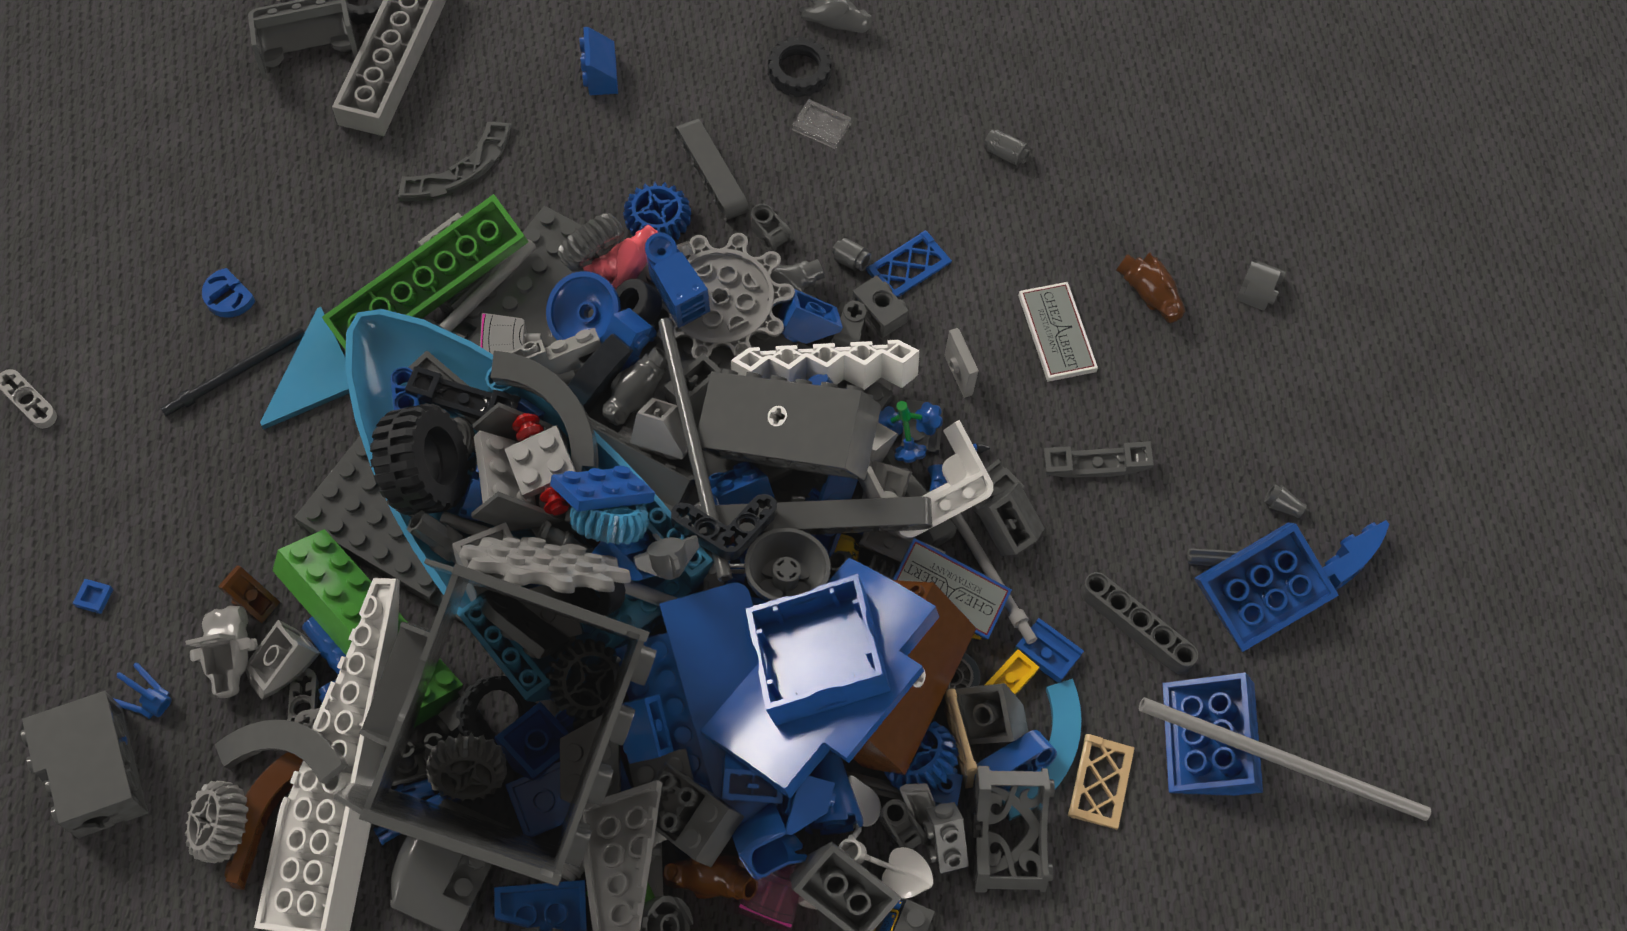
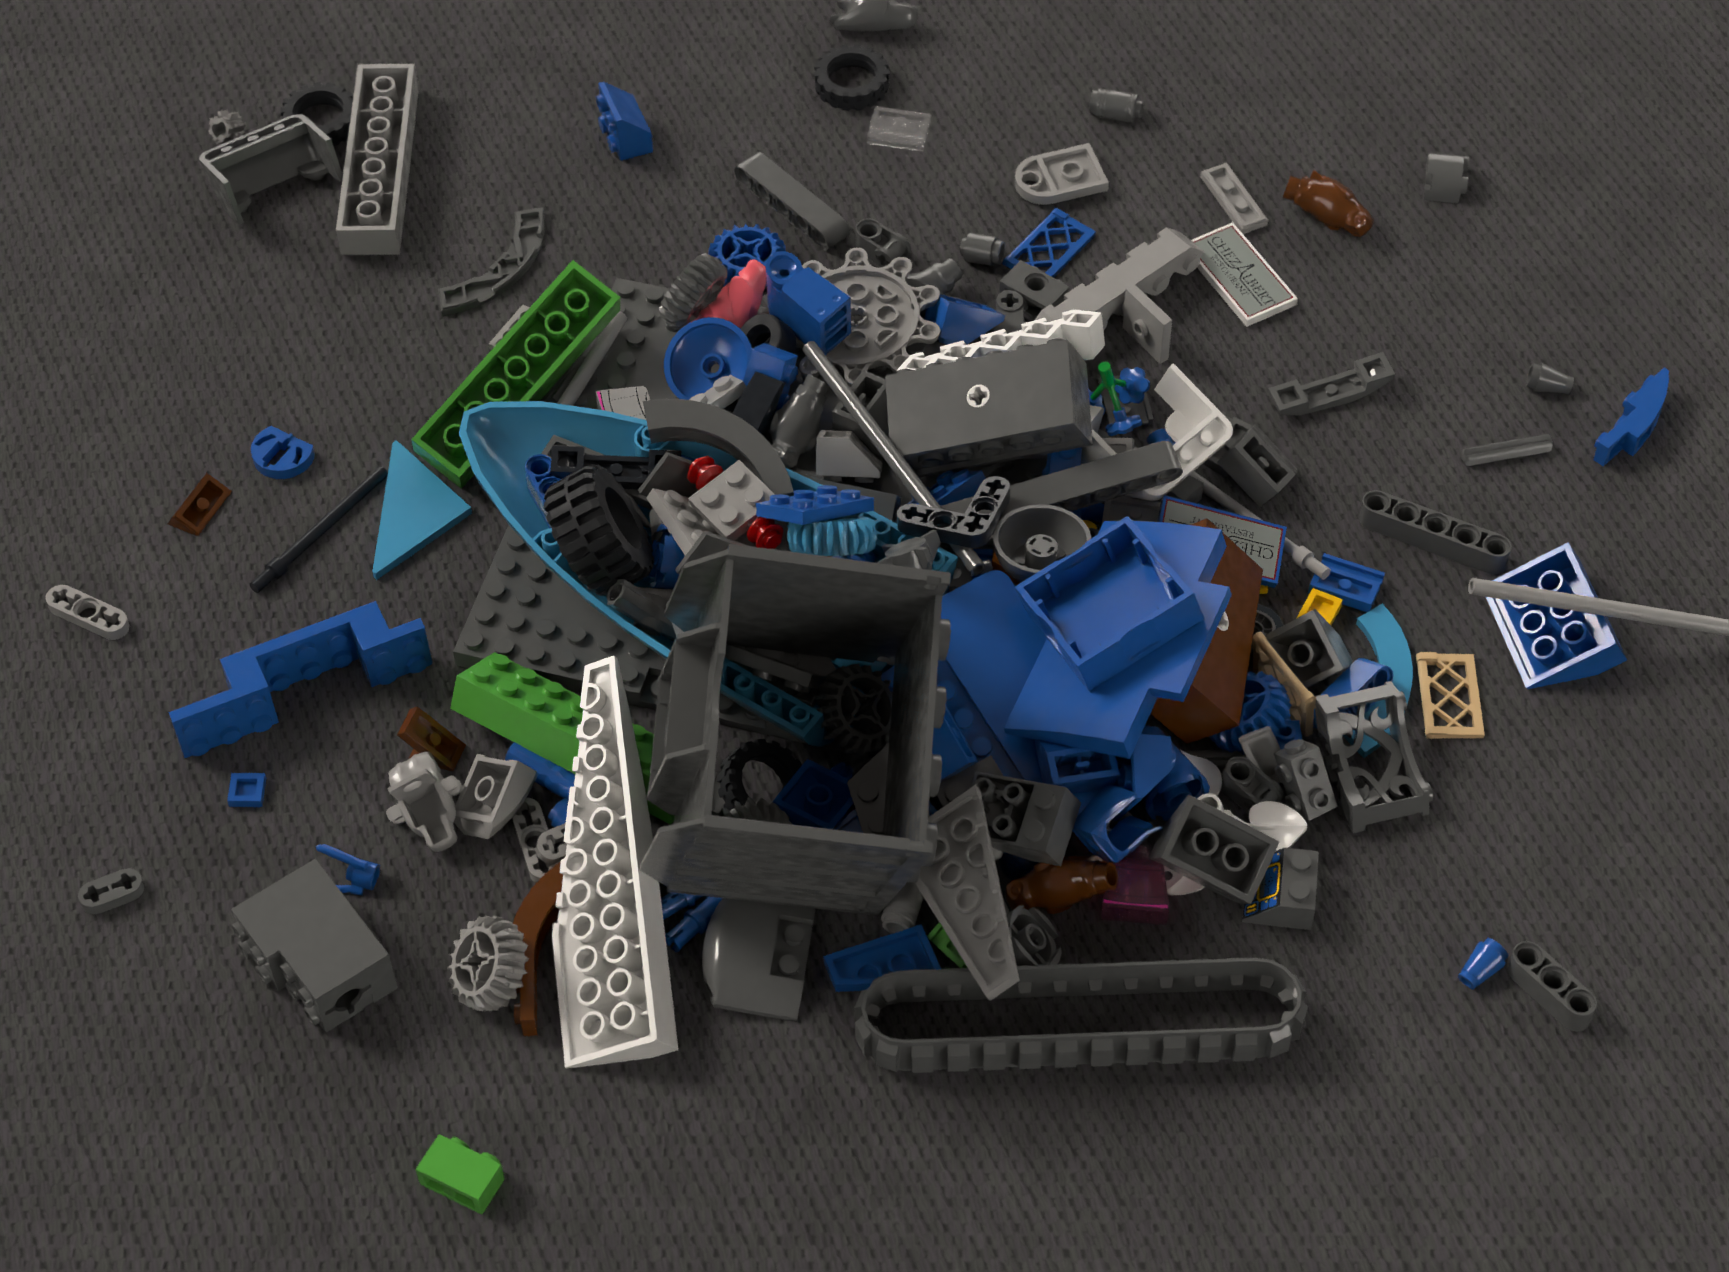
camera: 10 degrees left, 10 degrees down
(121, 502) = (295, 657): none -> blue bracket
(148, 325) = (200, 505): none -> reddish brown slope
(283, 736) = (532, 861): dark grey tile -> none
(940, 201) = (1060, 175): none -> light grey plate
(974, 313) = (1145, 266): none -> light grey brick
(1077, 258) = (1234, 198): none -> light grey tile
(1266, 586) = (1559, 460): blue slope -> none

